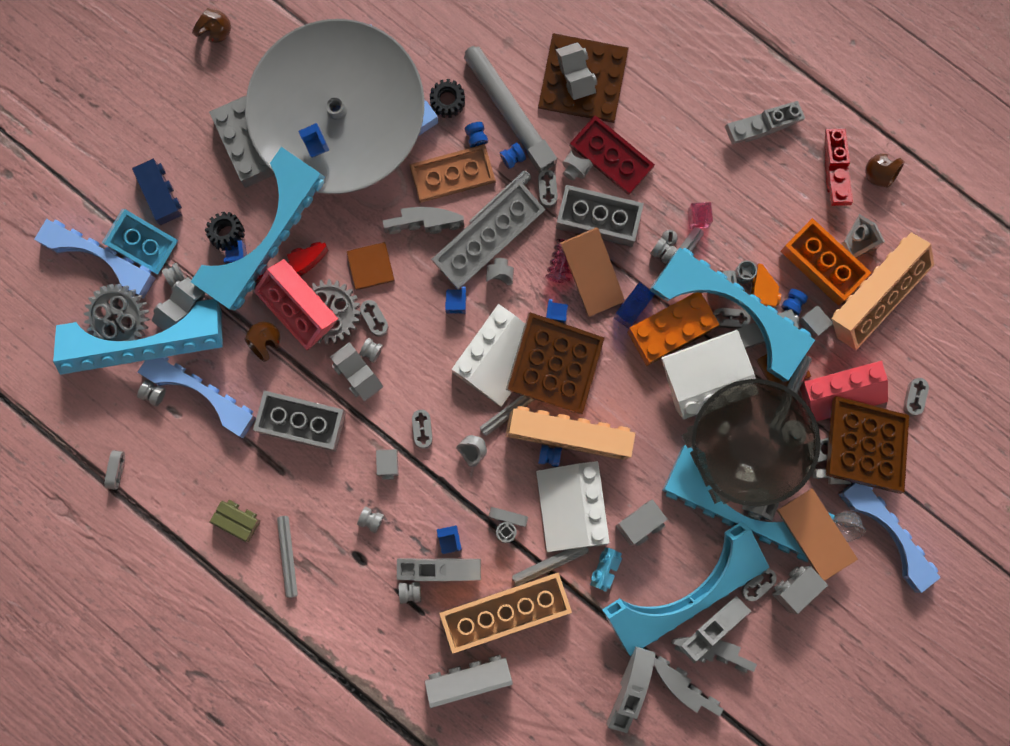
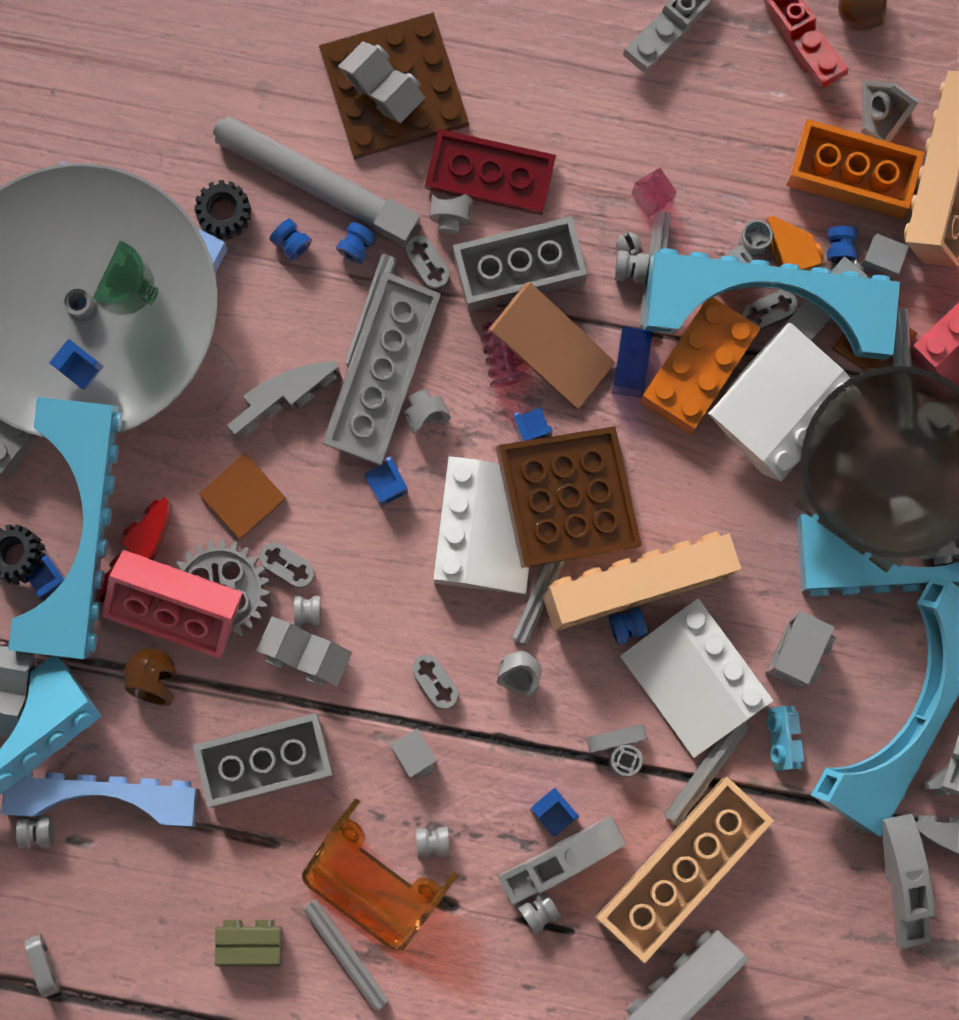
camera: 30 degrees left, 0 degrees up
(319, 524) = (367, 888): none -> clear orange windscreen
(365, 108) = (126, 283): none -> clear green brick
(452, 173) = (285, 310): nougat tile -> none

